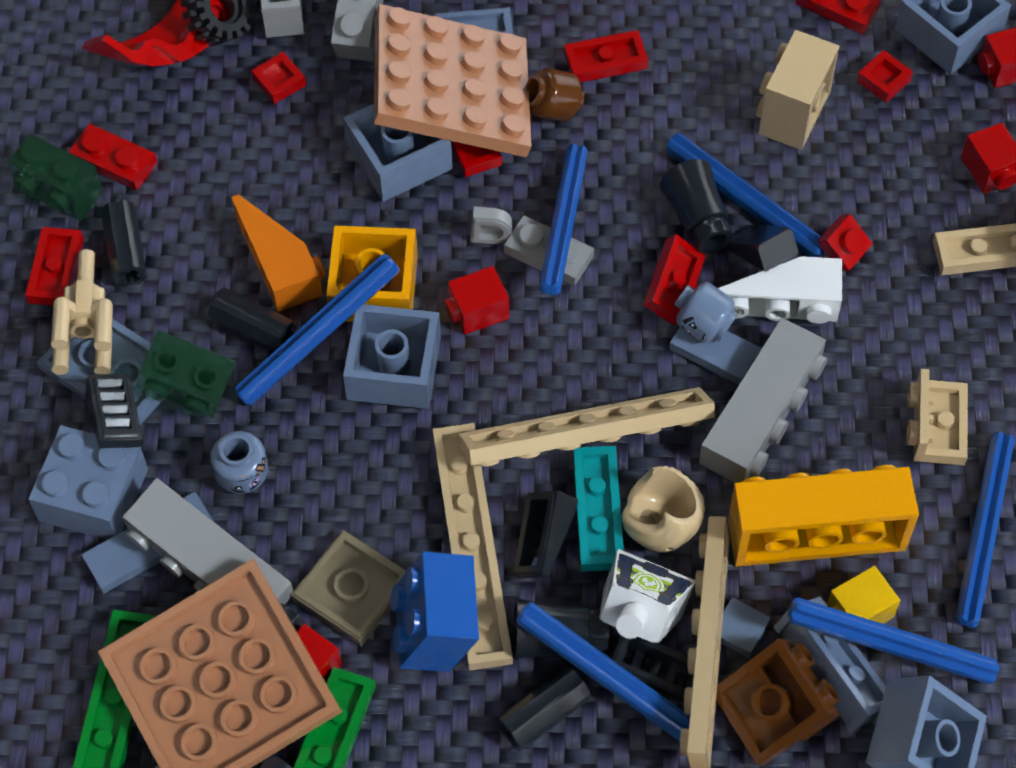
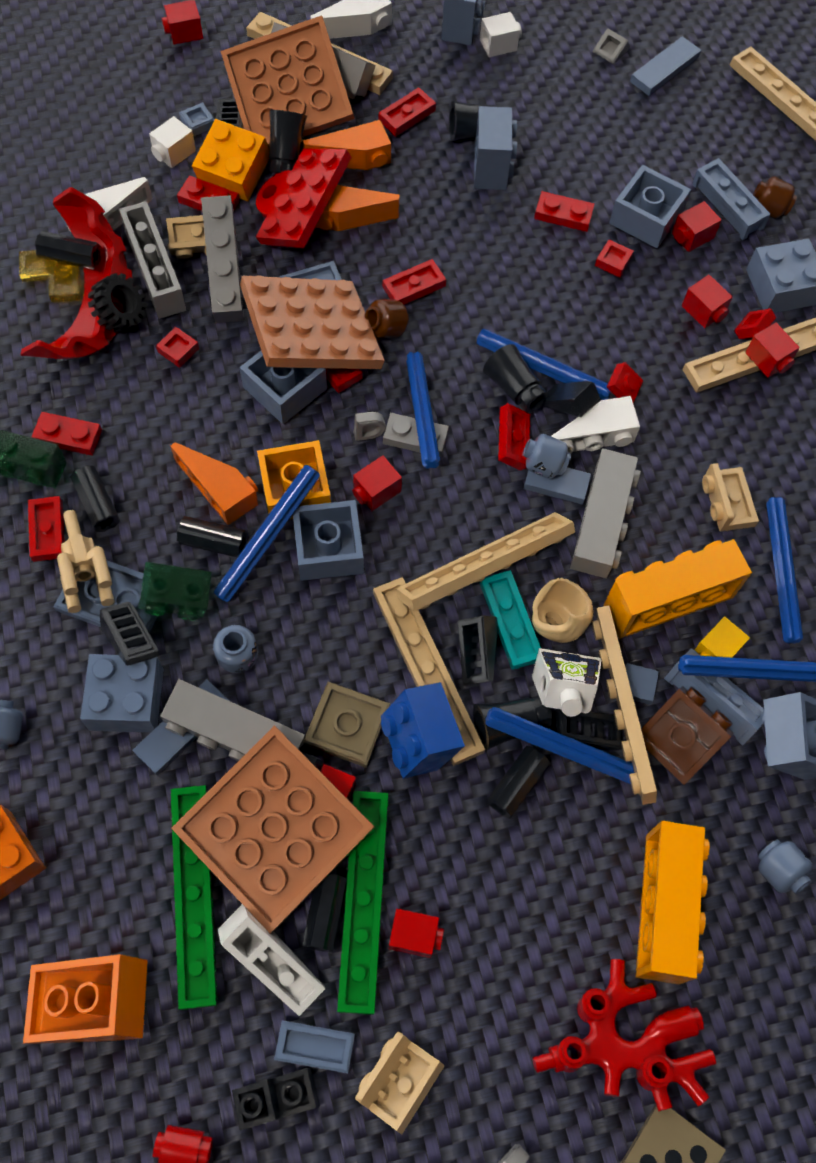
camera: 20 degrees left, 5 degrees up
(796, 89) = (560, 278): tan brick -> none

